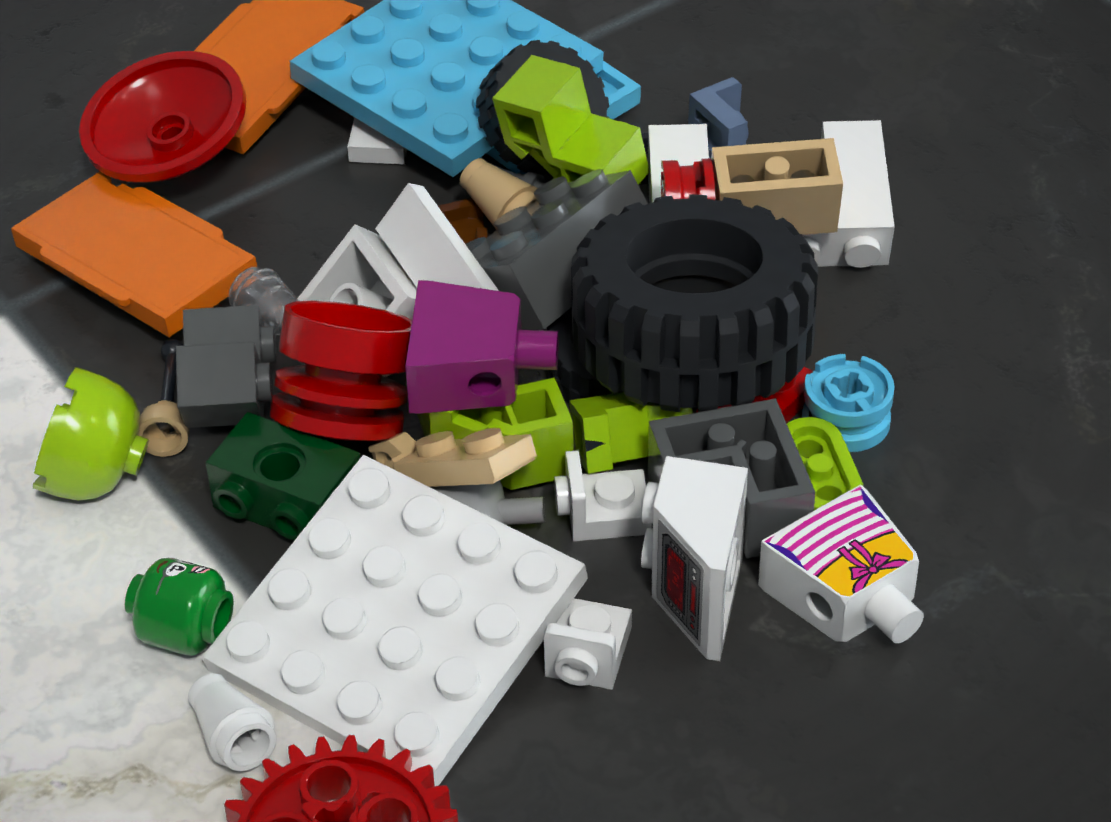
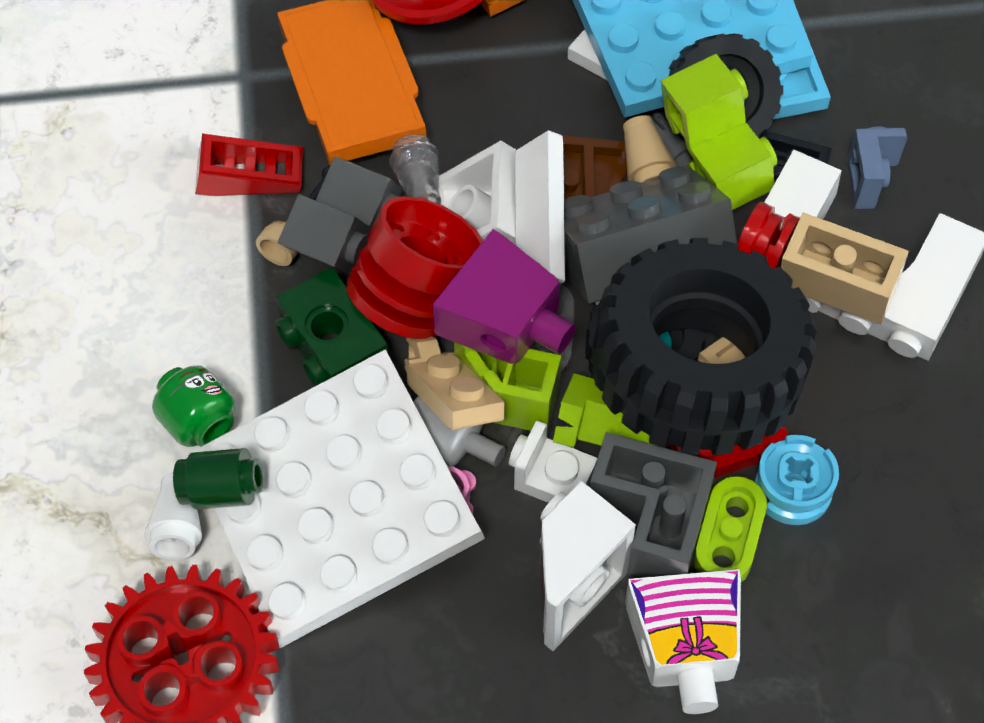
camera: 30 degrees right, 15 degrees up
(38, 380) = (228, 180): none -> red slope
(90, 440) = (215, 232): lime cylinder -> none
(267, 644) = (217, 479): none -> dark green brick
(587, 643) = (460, 587): white bracket -> none

